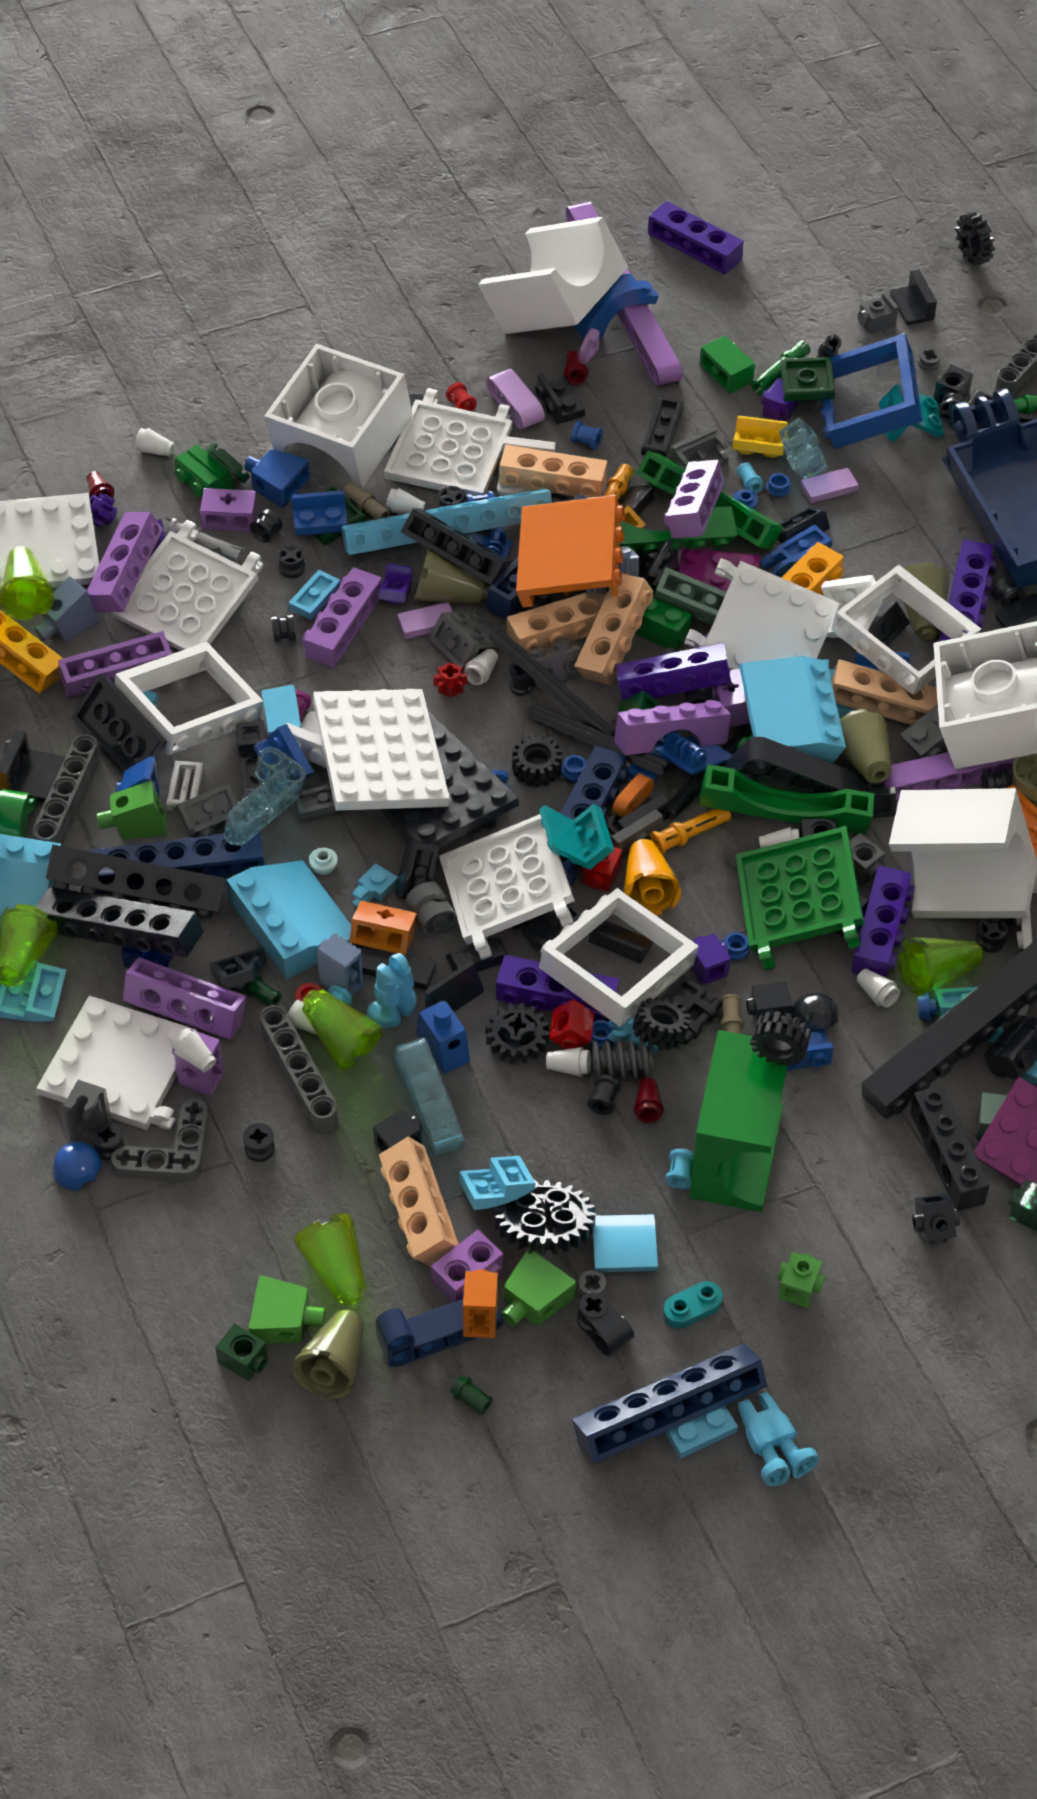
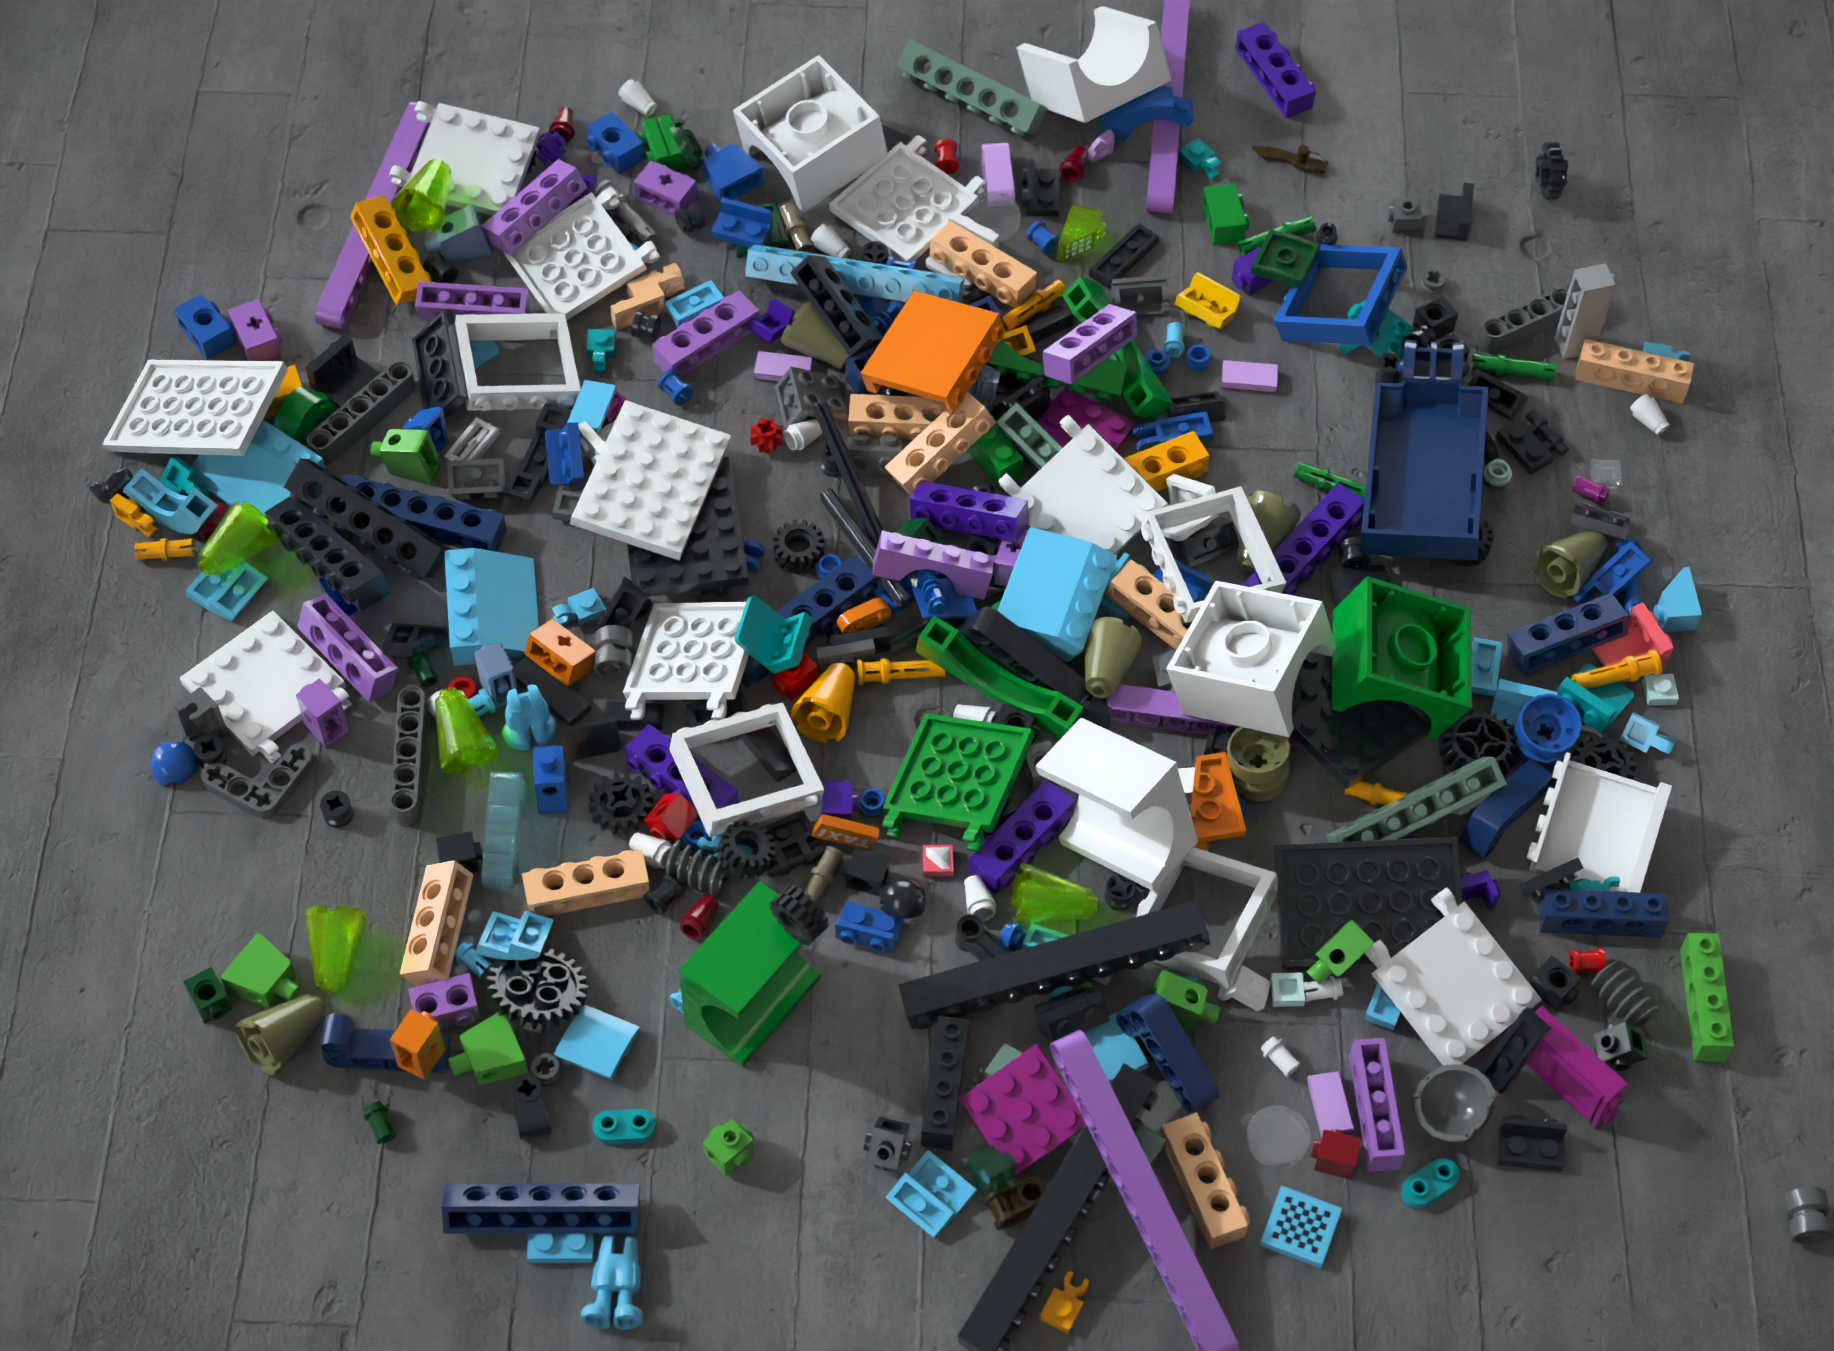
camera: 25 degrees right, 5 degrees up
(62, 646) = (440, 268): none -> black bush
(157, 486) = (615, 143): none -> blue brick
(193, 1050) = (307, 700): white cone -> none
(251, 660) = (599, 346): none -> teal plate
(269, 600) = (647, 295): none -> light nougat plate
(280, 787) = (487, 502): clear light blue beam -> none
(291, 561) = (695, 255): black wheel -> none
(323, 866) = (550, 572): light aqua plate -> none
(342, 669) = (675, 387): none -> blue bush
(387, 322) = (917, 55): none -> sand green brick
(468, 1220) = (467, 955): none -> medium azure pin
(524, 1127) = (579, 896): none -> light nougat brick
(536, 425) = (997, 213): none -> clear tile
(615, 419) = (1080, 232): none -> clear neon green slope
(676, 327) = (1200, 156): none -> teal plate
(733, 977) = (845, 832): none -> orange tile
(761, 300) = (1301, 159): none -> dark brown piece
(803, 449) = (1240, 330): clear light blue brick -> none
(821, 971) = (937, 860): none -> tile
(902, 1020) = (983, 944): none -> black piece
(942, 436) = (1388, 368): none -> black bush
(946, 543) = (1326, 480): none -> green pin
(994, 1245) = (931, 1194): none -> medium azure slope

